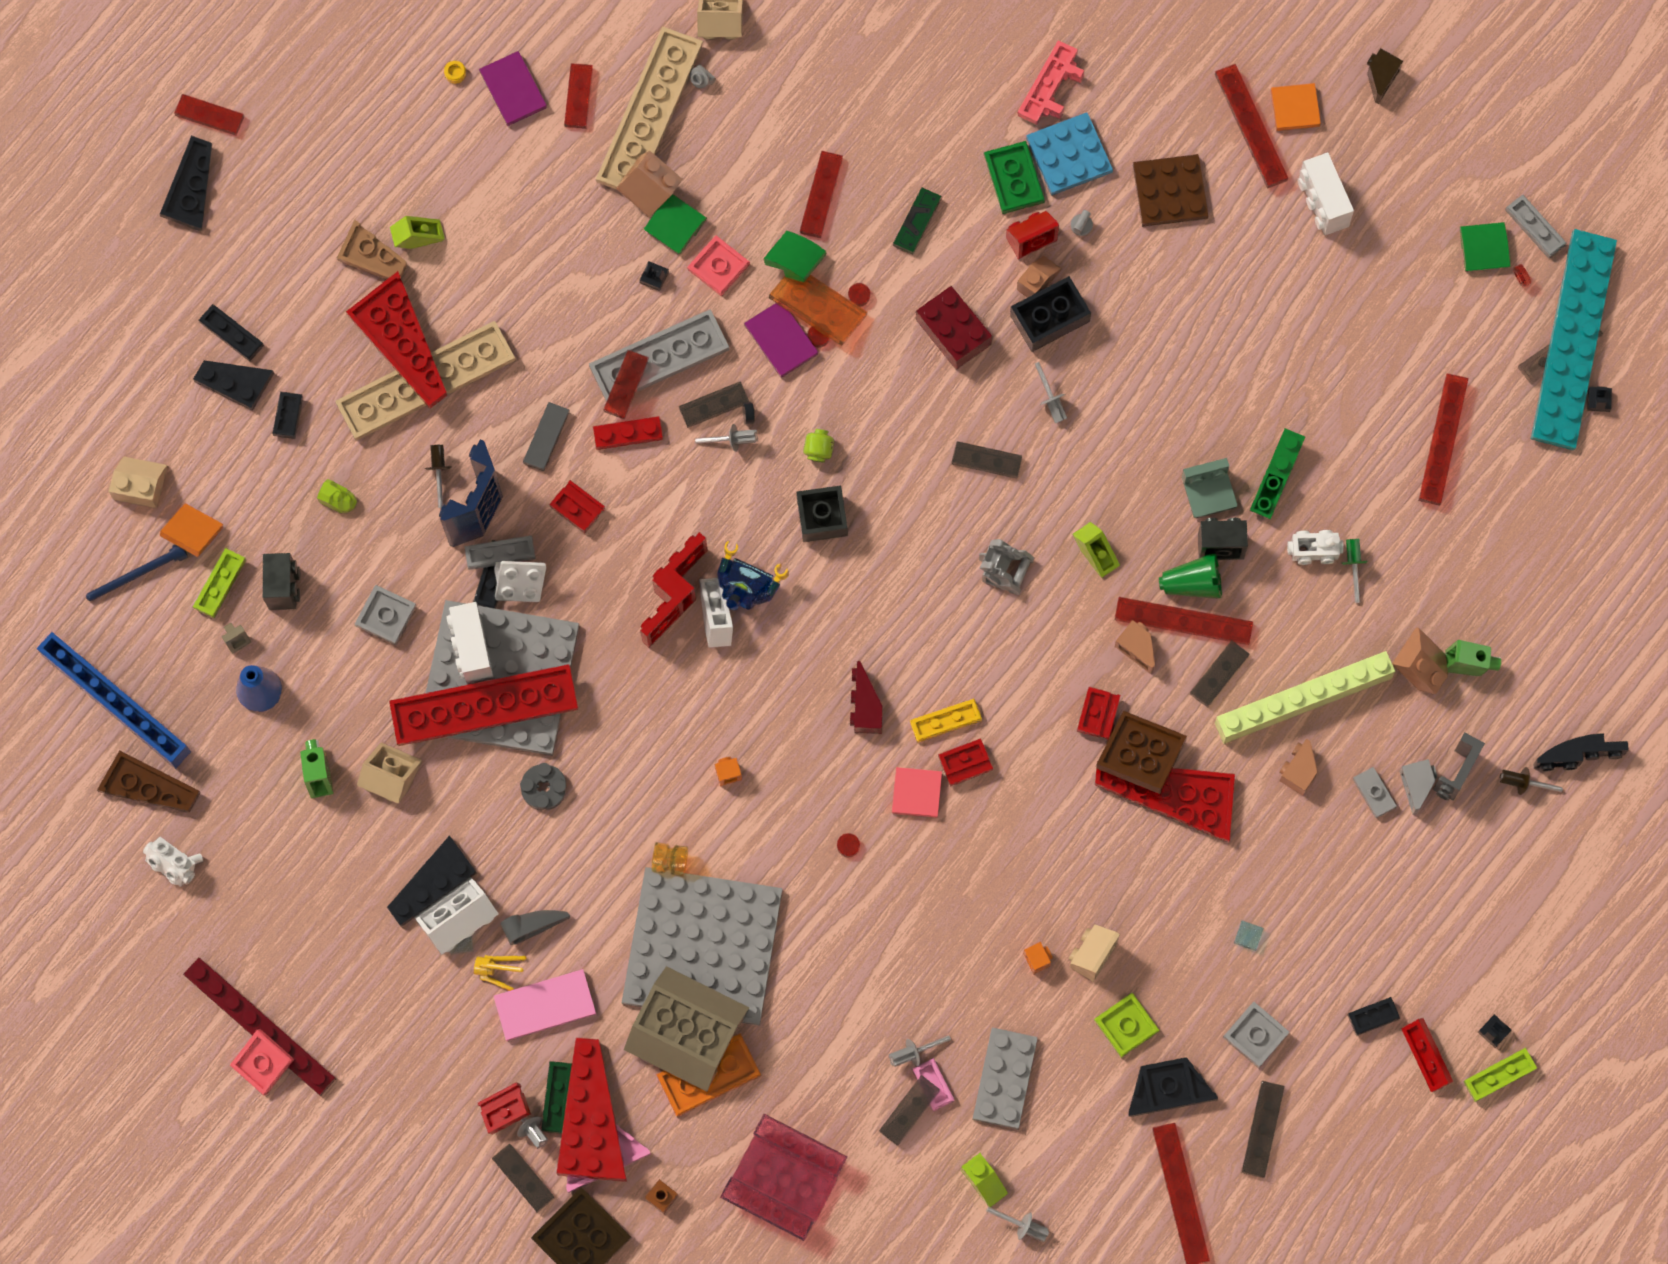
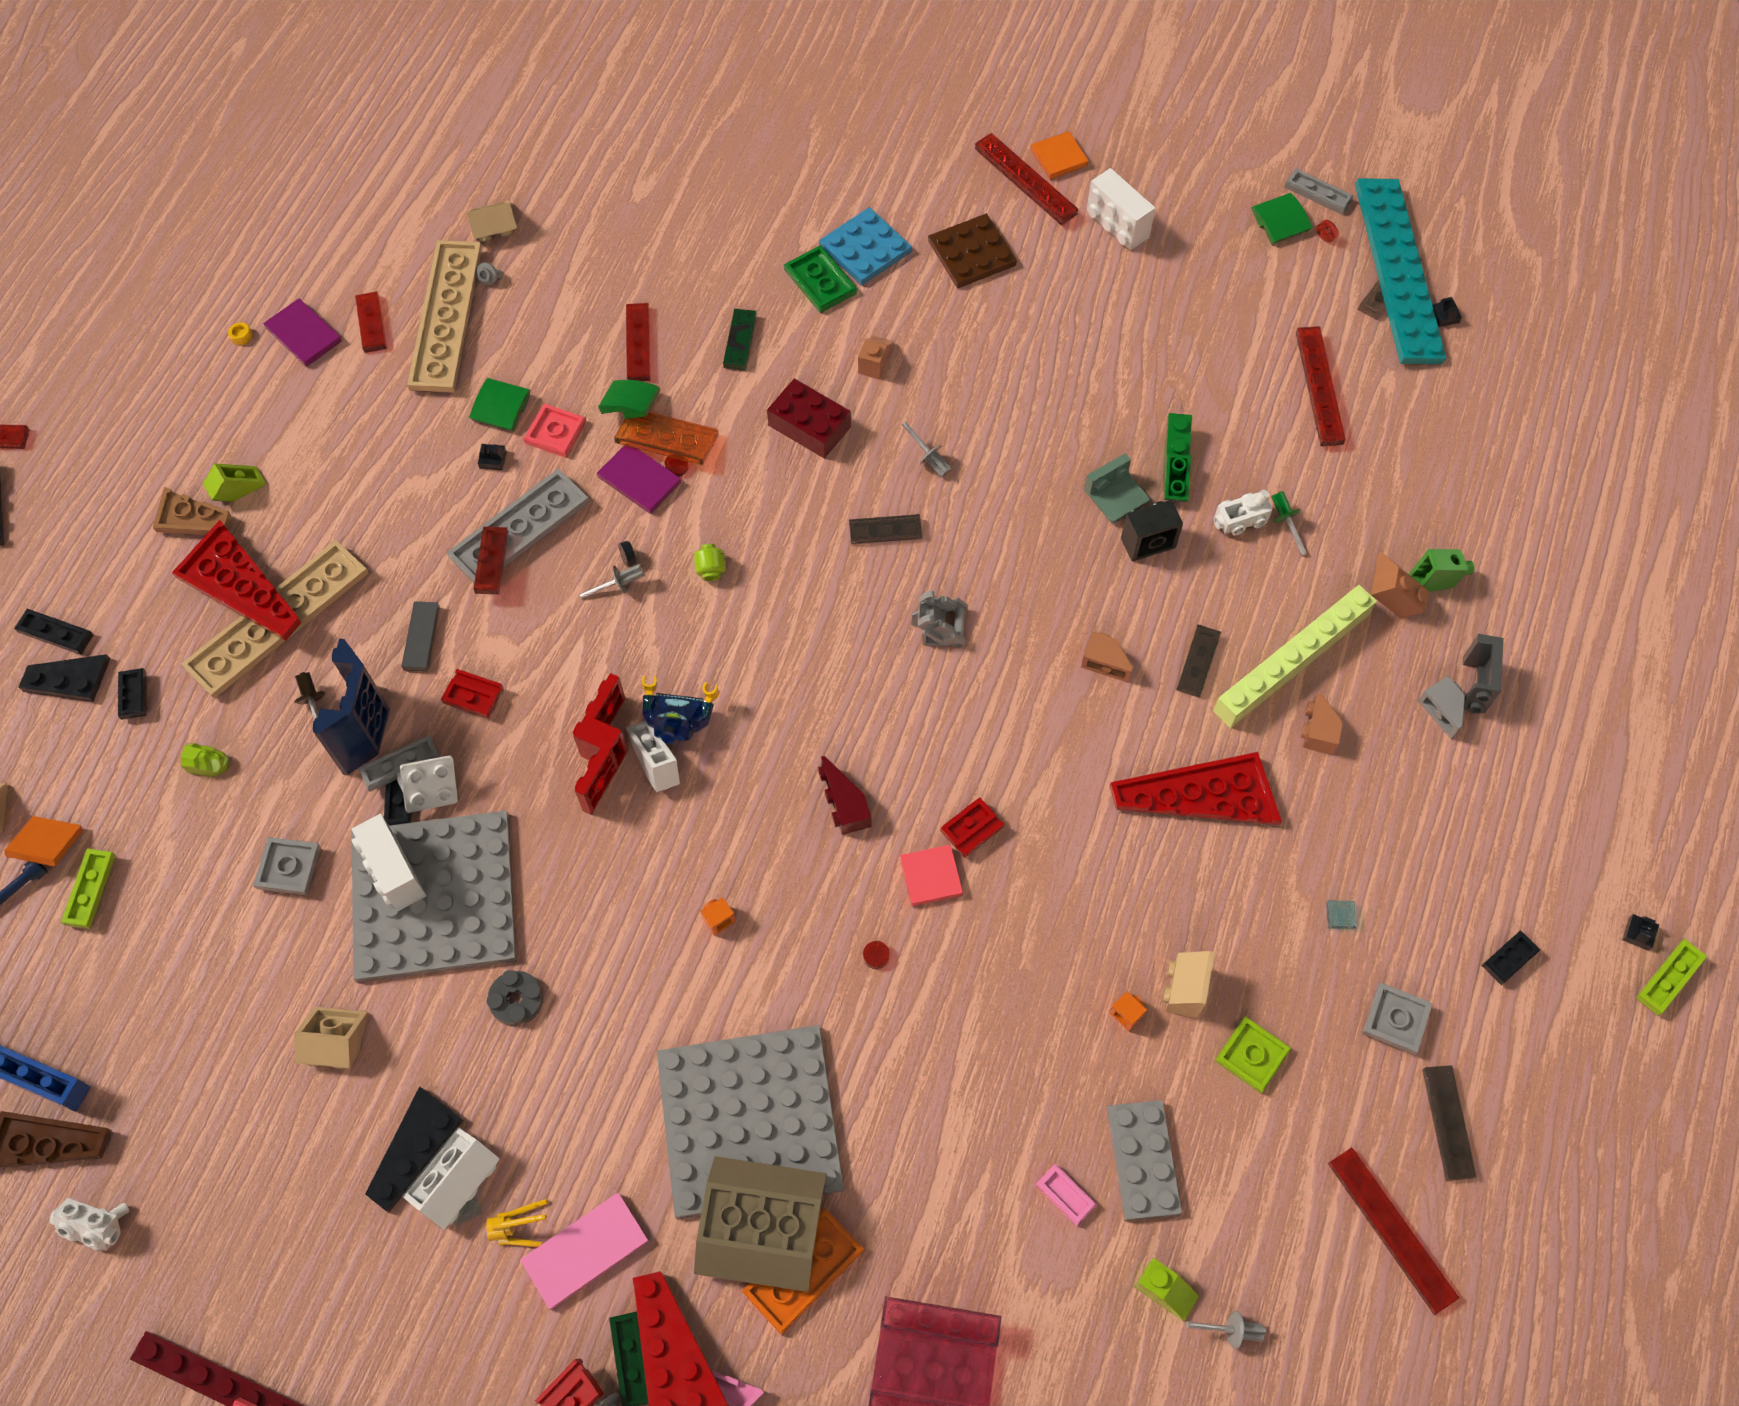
camera: 20 degrees left, 10 degrees down
(235, 637) = (118, 942): dark tan tile -> none
(258, 688) = (154, 987): blue cone -> none
(279, 581) = (155, 864): pearl dark grey brick -> none
(316, 770) = (243, 1061): bright green torso -> none
(483, 705) = (419, 928): red plate -> none
(528, 925) = (531, 1167): dark grey piece -> none
(627, 433) = (506, 608): red plate -> none
(649, 183) = (461, 371): nougat slope -> none
(678, 859) = (691, 1028): clear yellow wheel -> none
(713, 404) = (588, 556): clear smoke tile -> none
(822, 513) = (734, 624): pearl dark grey brick -> none
(859, 294) = (705, 416): clear red tile -> none
(909, 1110) = (1051, 1234): clear smoke tile -> none
(911, 1052) = (1029, 1164): light grey piece -> none
(945, 720) = (934, 792): yellow tile -> none
(1032, 234) = (857, 317): red slope -> none
(1040, 97) = (821, 205): coral hinge -> none
(1050, 314) = (900, 379): black brick -> none
(1082, 223) = (900, 298): light grey plate -> none
(1096, 549) = (1027, 577): lime slope -> none
(1098, 713) = (1092, 735): red plate -> none
(1141, 752) = (1154, 758): reddish brown plate -> none
(1169, 1087) = (1327, 1109): black wing -> none
(1184, 620) = (1142, 620): clear red tile -> none
(1194, 579) = (1137, 575): green cone -> none
(1374, 792) = (1404, 728): light grey plate -> none
(1382, 72) = (1126, 106): dark brown slope -> none
(1427, 1055) = (1587, 980): red plate -> none
(1522, 781) = (1548, 670): dark brown piece -> none
(1571, 752) = (1588, 623): black slope -> none

